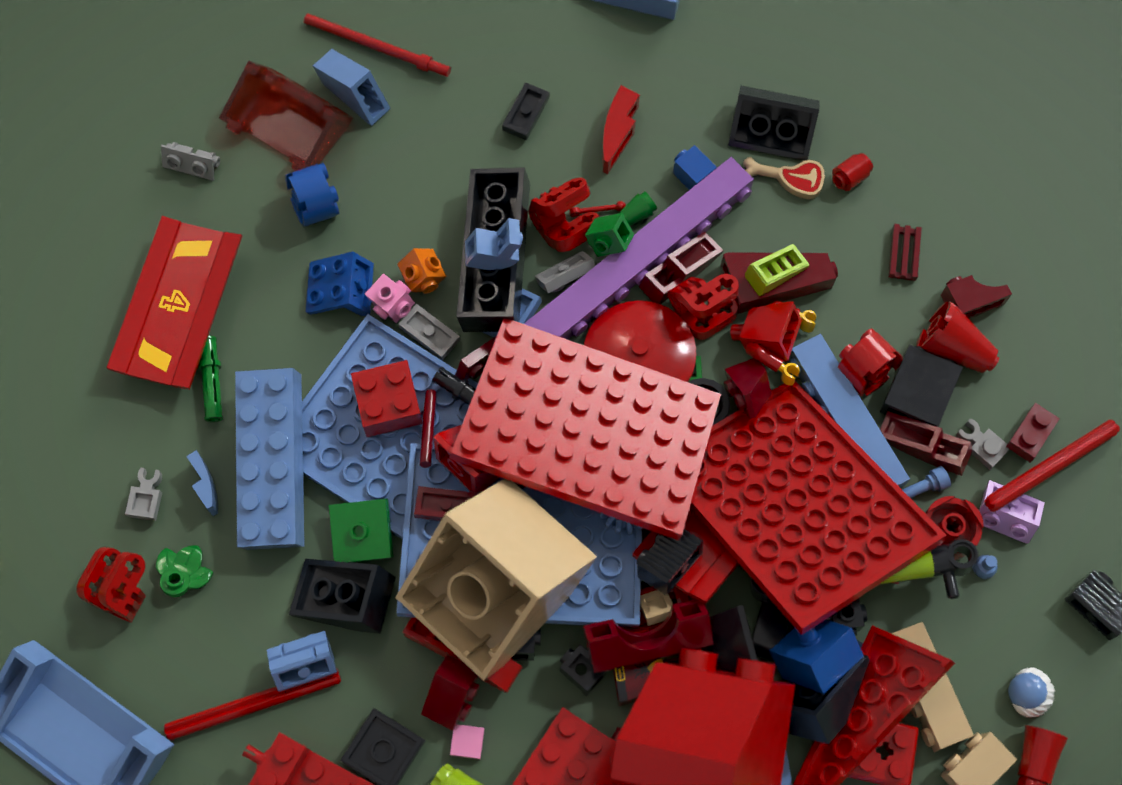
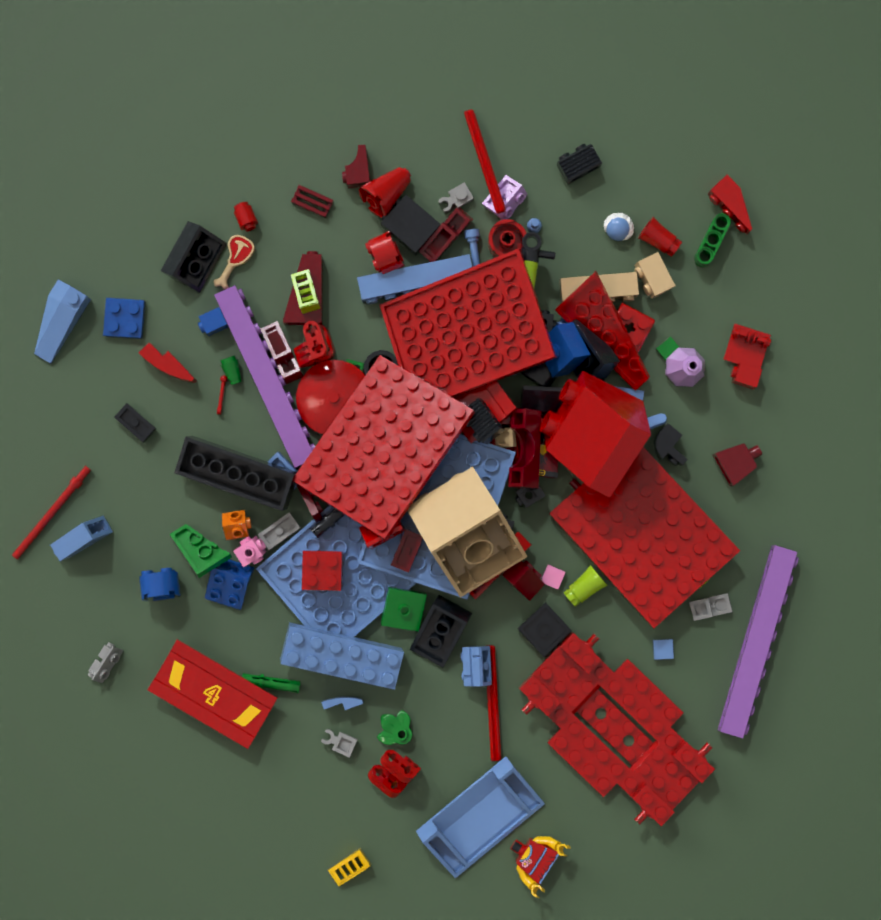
camera: 75 degrees left, 15 degrees up
(284, 115) = (92, 588): clear red windscreen -> none
(371, 231) = (199, 551): none -> green wing
(428, 428) = (350, 549): dark red bar -> none
(494, 249) = (244, 473): medium blue brick -> none
(550, 218) = (222, 426): red piece -> none
(565, 272) = (263, 429): light grey plate -> none
(609, 234) = (249, 393): green brick -> none
(662, 63) = (124, 318): none -> blue plate
(748, 386) = (379, 334): dark red slope -> none
(771, 333) = (348, 309): red torso -> none
(1032, 432) = (458, 164): dark red plate -> none

